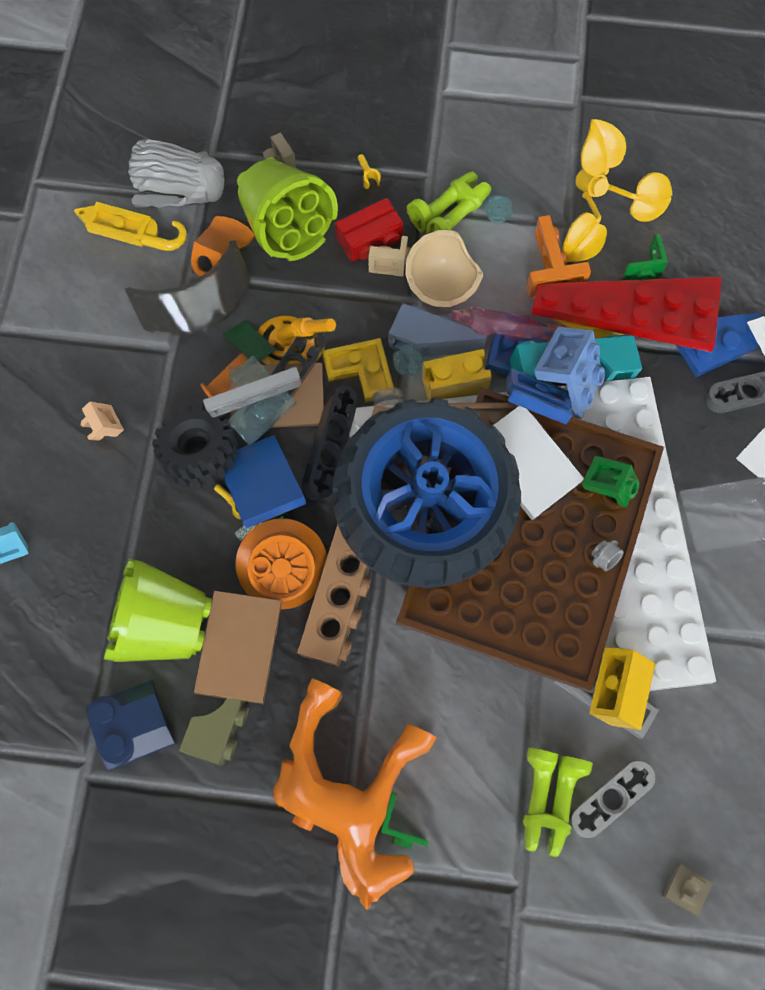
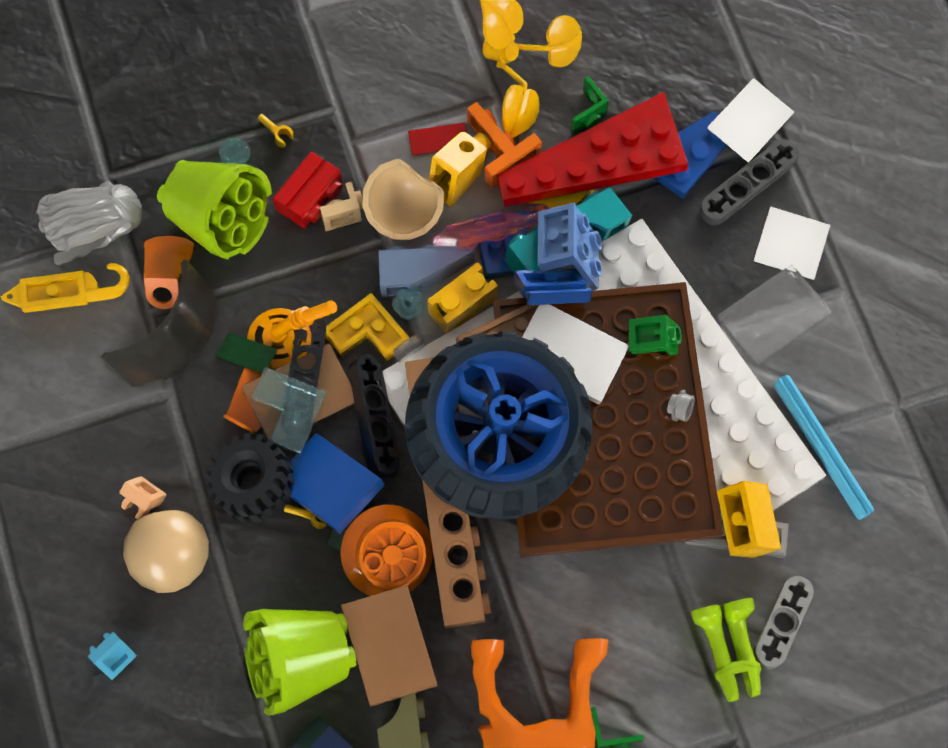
camera: 25 degrees left, 0 degrees up
(98, 476) = (166, 550): none -> tan cylinder
(253, 392) = (285, 402): light grey tile -> none
(280, 151) = (180, 149): dark tan tile -> none
(326, 172) = (235, 151): none -> clear light blue plate
(461, 191) = (376, 112): lime piece -> none
(496, 214) = (422, 120): clear light blue plate -> none
(503, 236) = (433, 138): none -> red sticker
(507, 262) = (459, 165): none -> yellow torso
(687, 889) = (882, 668): dark tan tile -> none
(725, 656) = (823, 447): none -> medium azure axle

